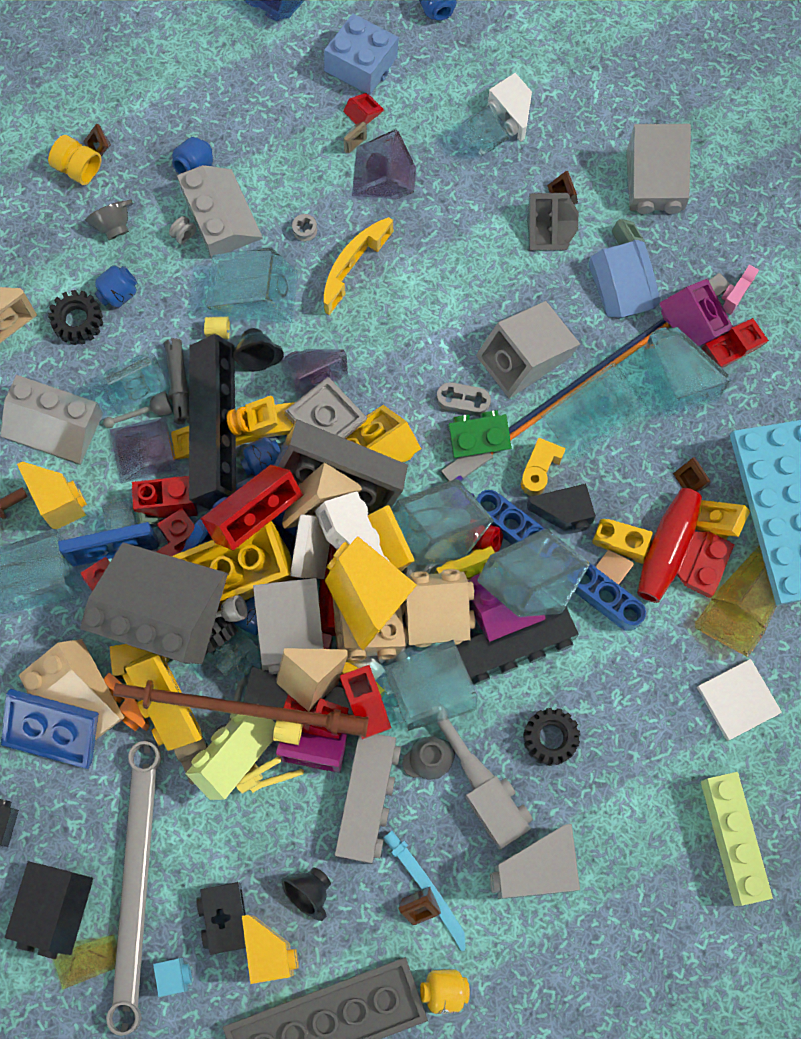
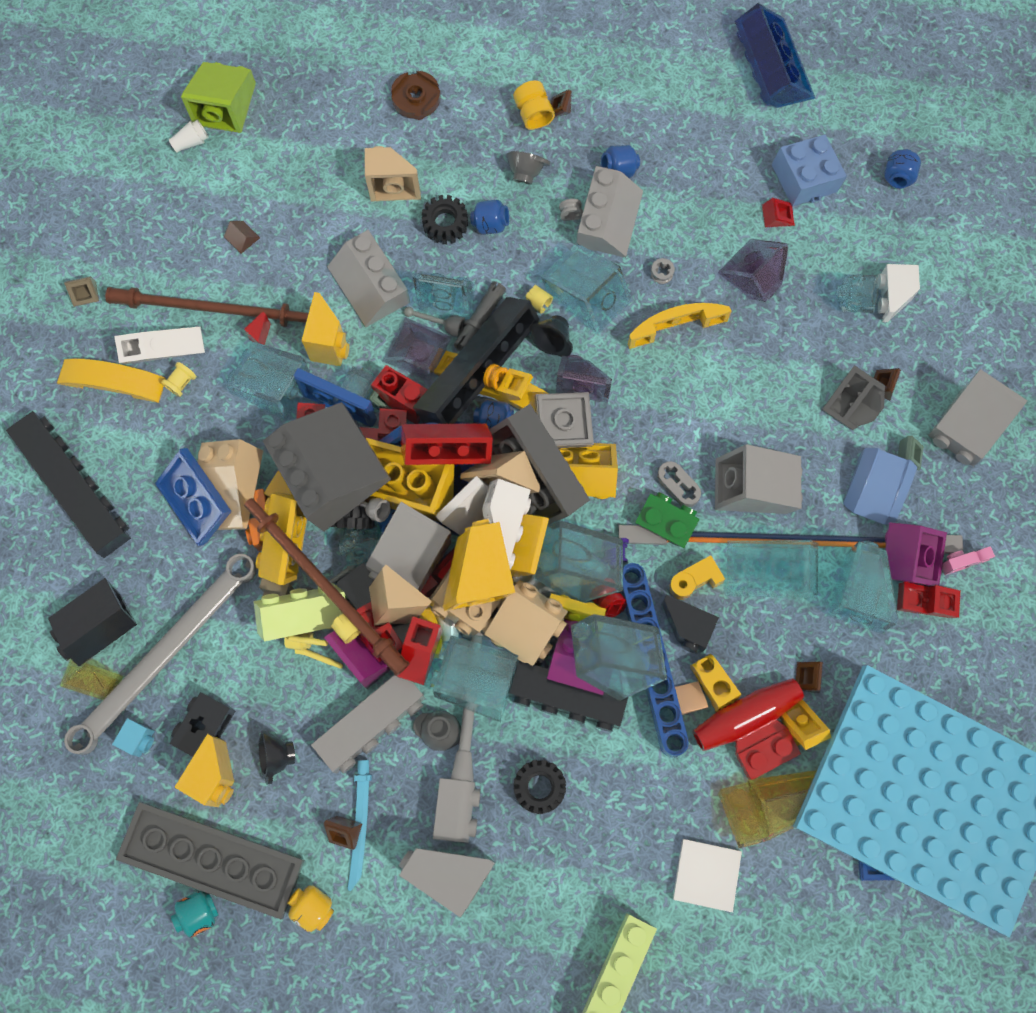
camera: 40 degrees right, 0 degrees up
(355, 137) = (754, 230): dark tan slope -> none

